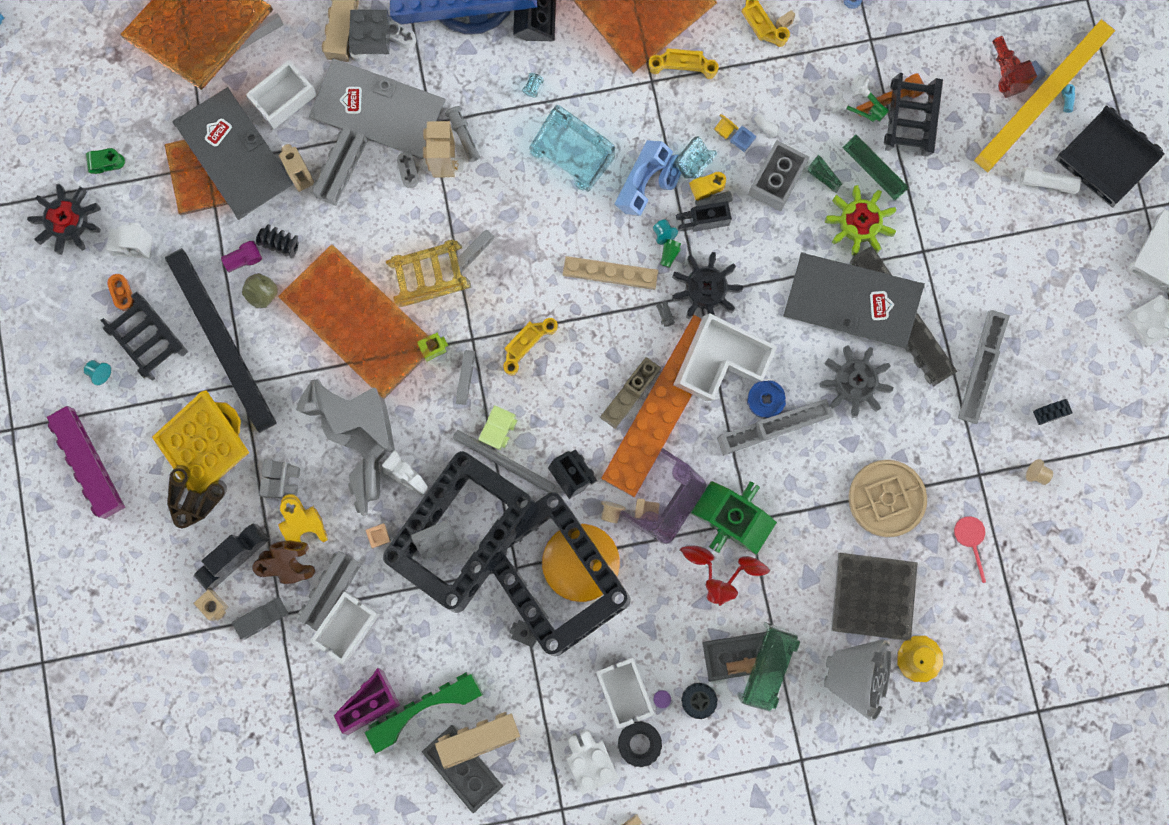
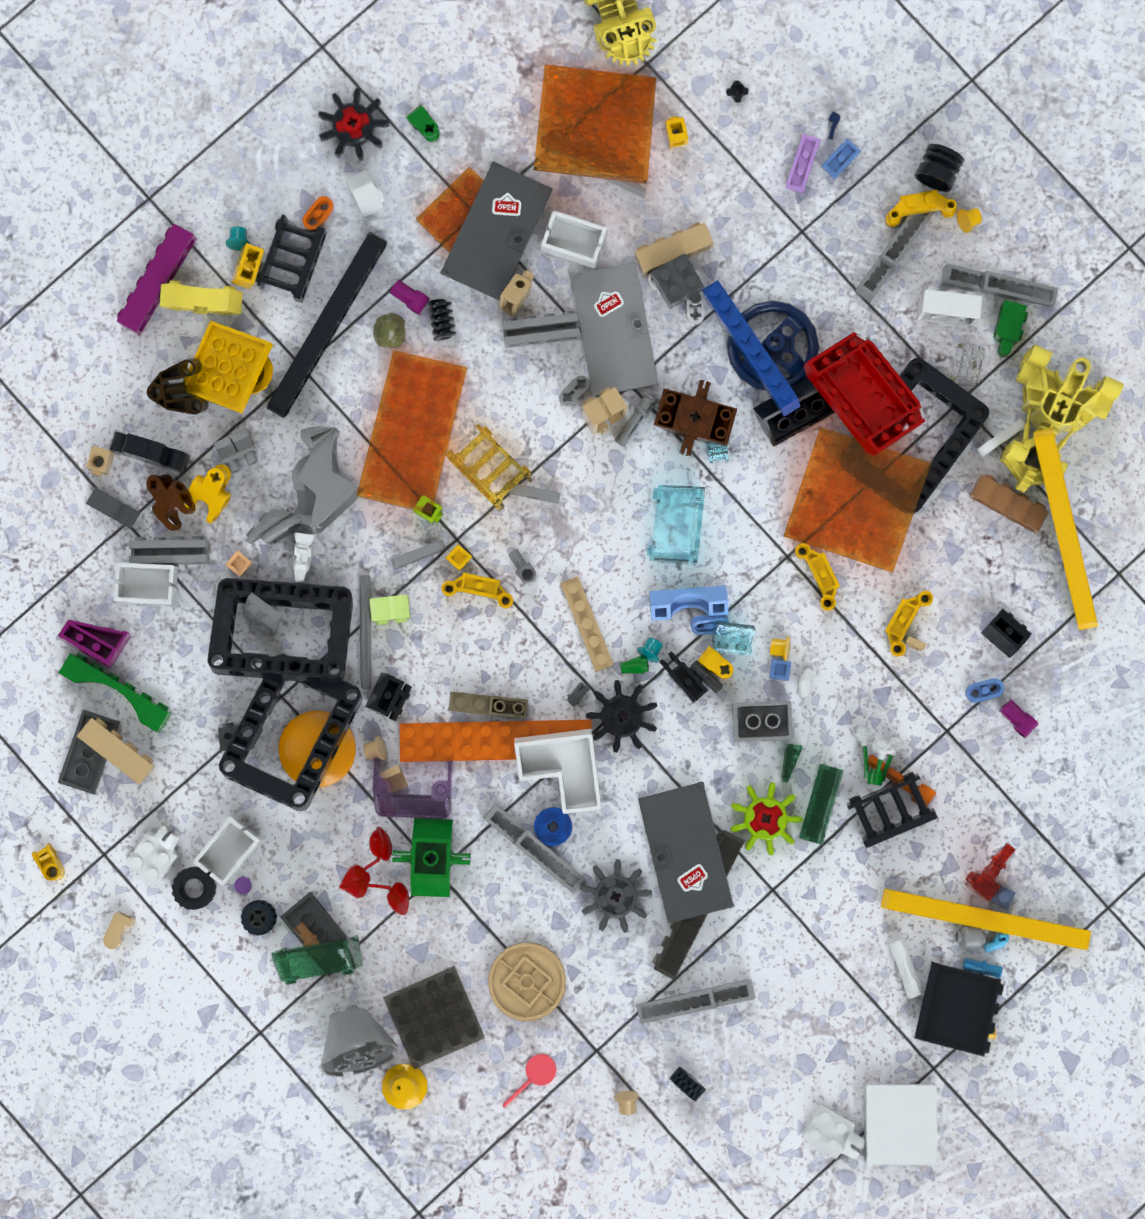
camera: 60 degrees right, 5 degrees up
(125, 376) = (247, 266): none -> yellow brick
(128, 434) = (201, 300): none -> light yellow brick
(489, 345) = (459, 557): none -> yellow plate
(502, 70) = (714, 422): none -> reddish brown slope
(528, 296) = (521, 566): none -> light grey axle
(1054, 115) = (970, 938): none -> light grey head
(1084, 120) = (982, 968): none -> dark azure axle

